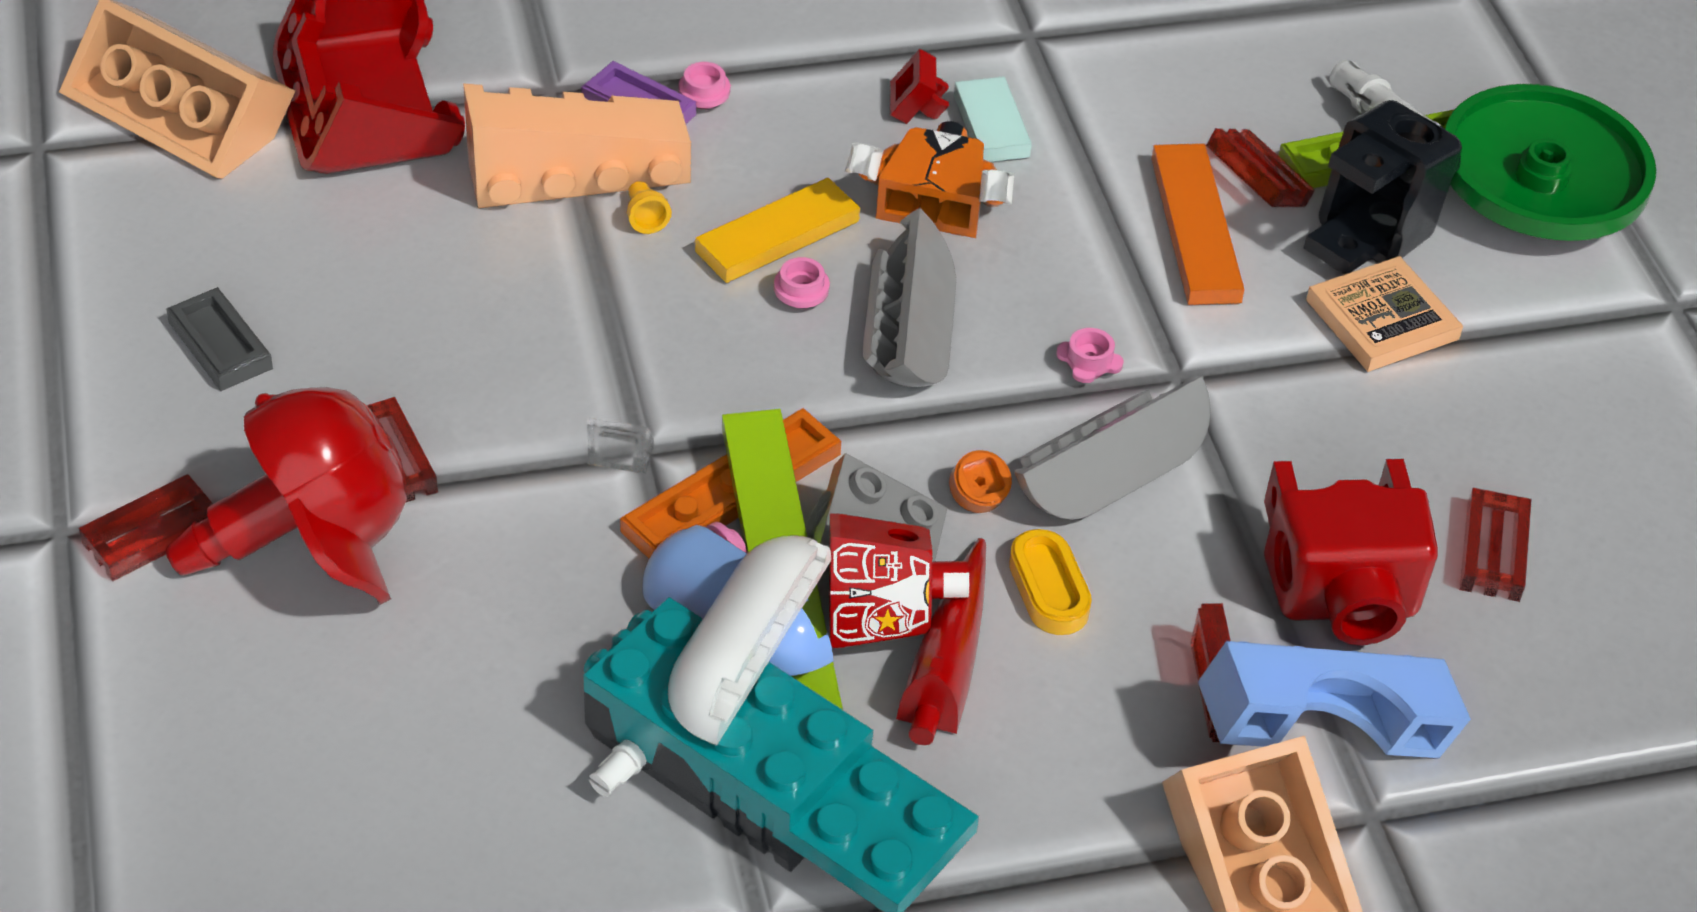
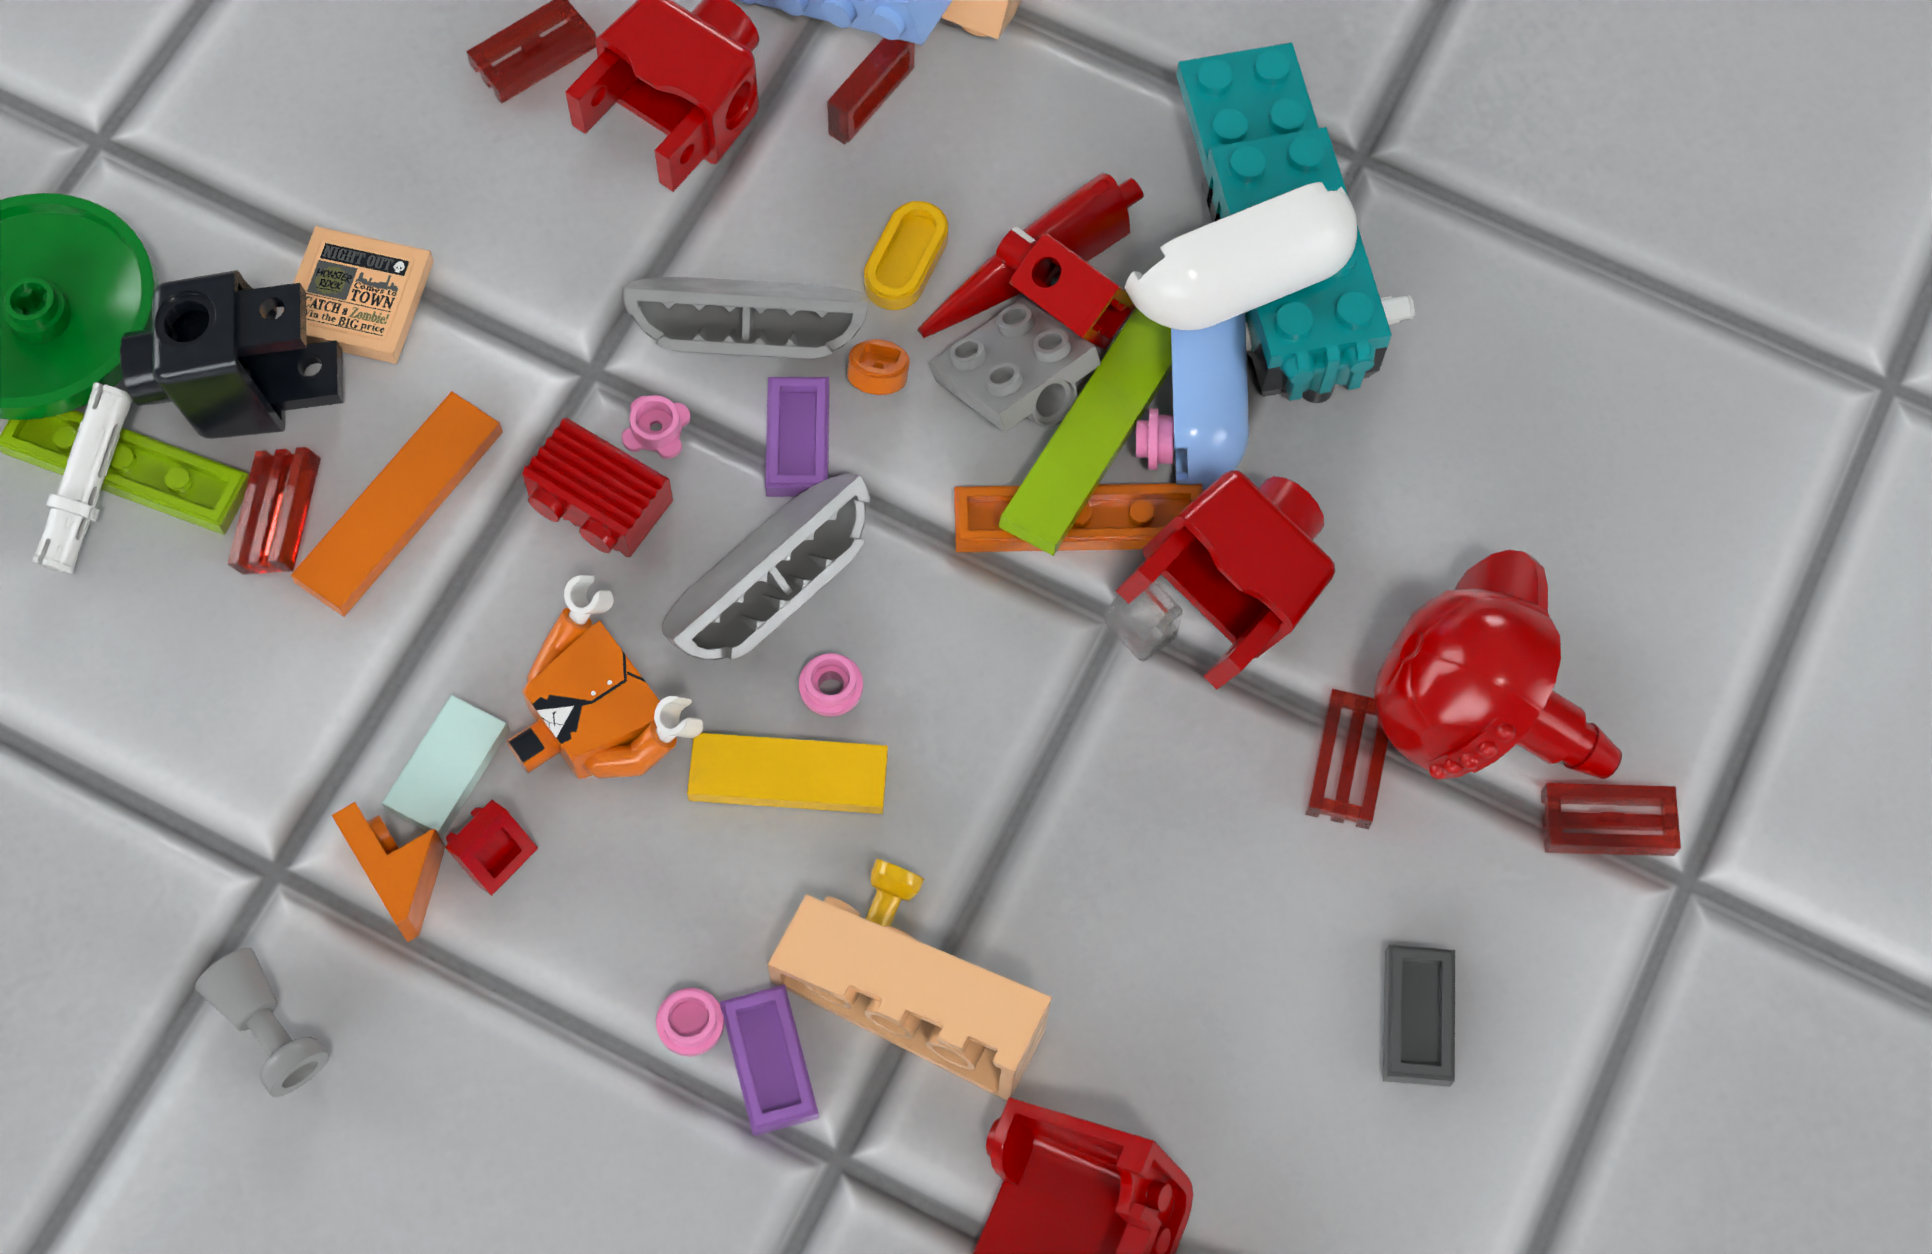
camera: 140 degrees left, 20 degrees up
(571, 466) = (1242, 563): none -> red piece
(964, 45) = (399, 875): none -> orange slope
(989, 414) = (796, 434): none -> medium lavender tile
(1079, 289) = (596, 488): none -> red brick

